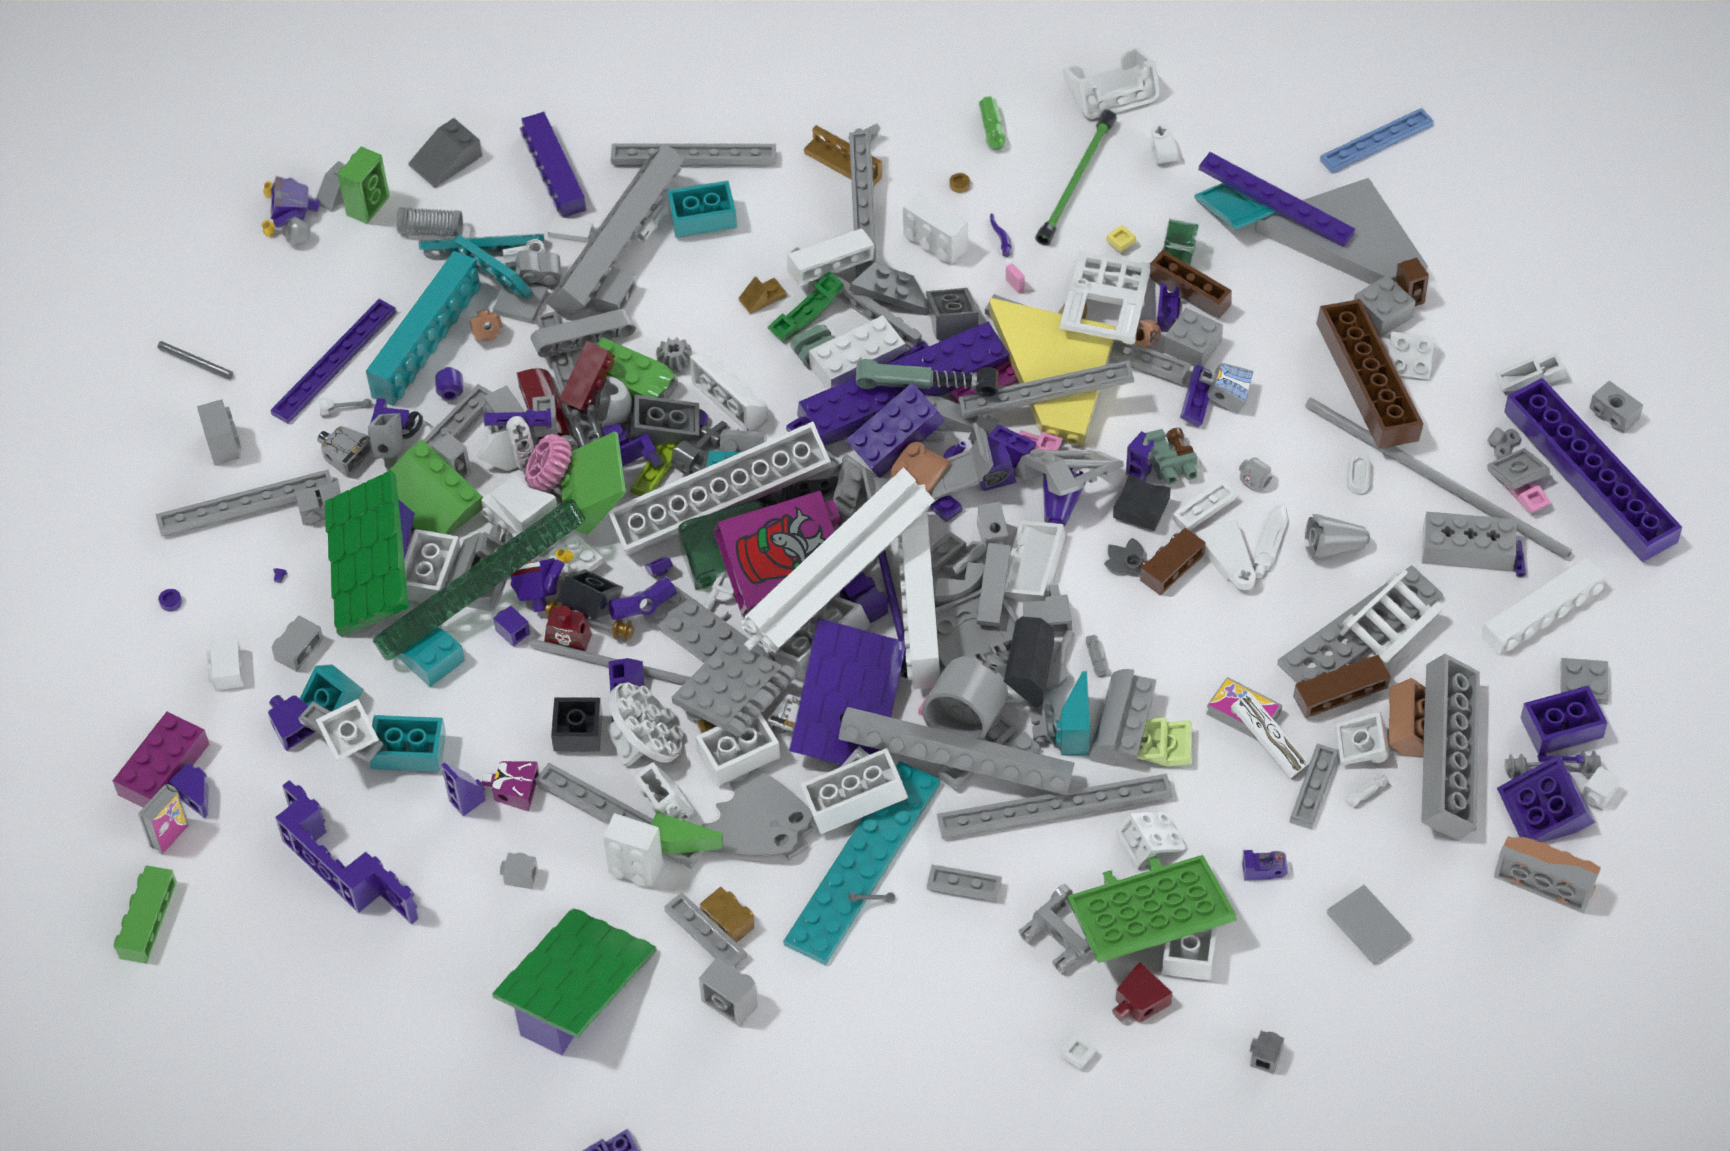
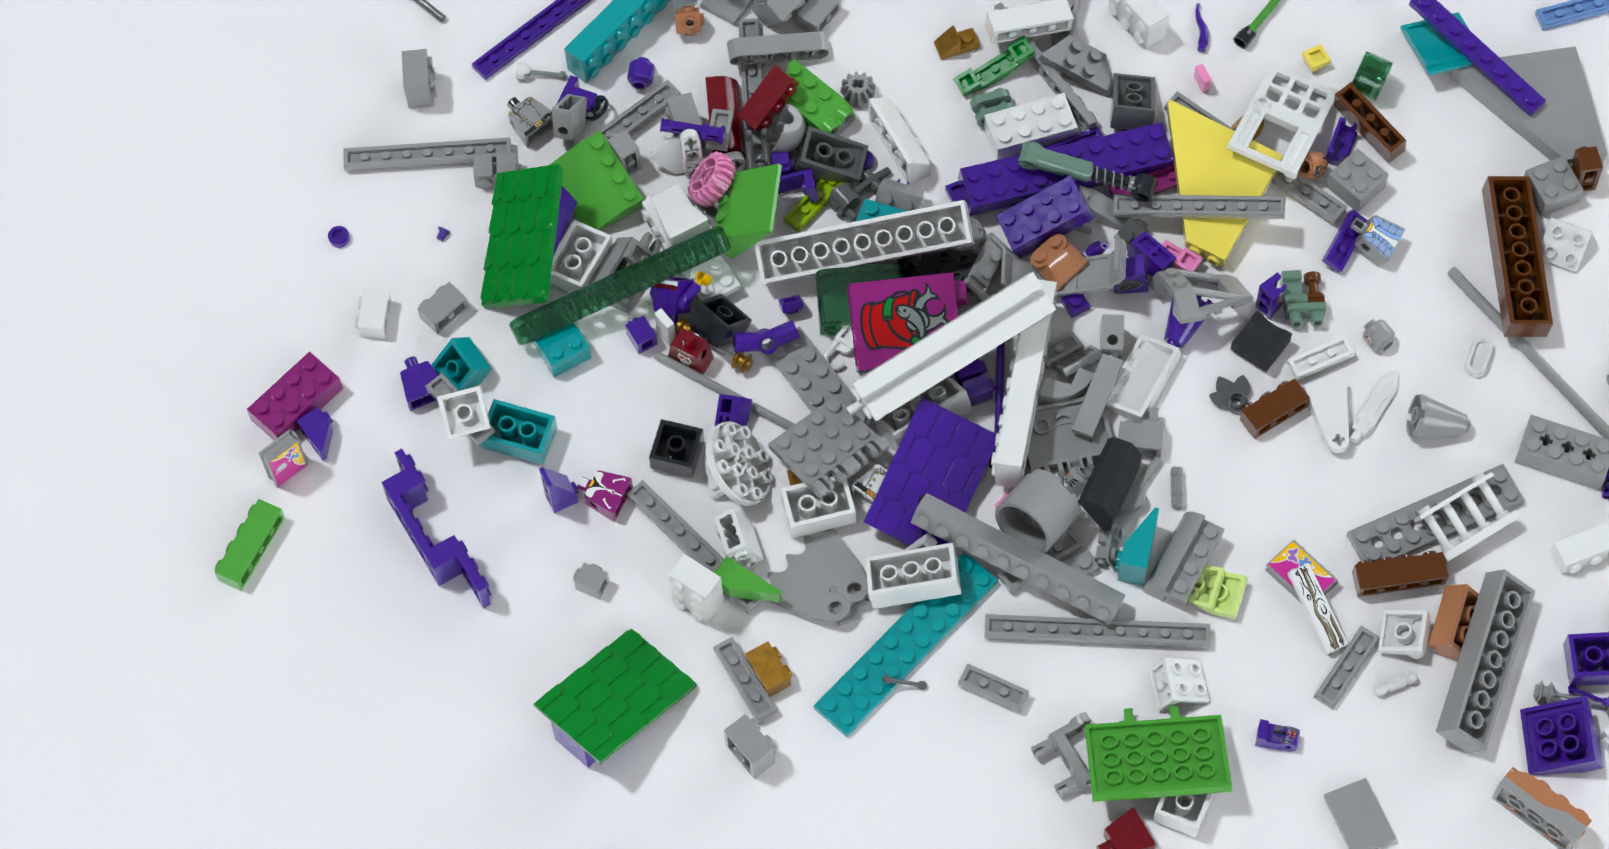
camera: 15 degrees right, 10 degrees up
(535, 611) = (664, 327): none -> white tile

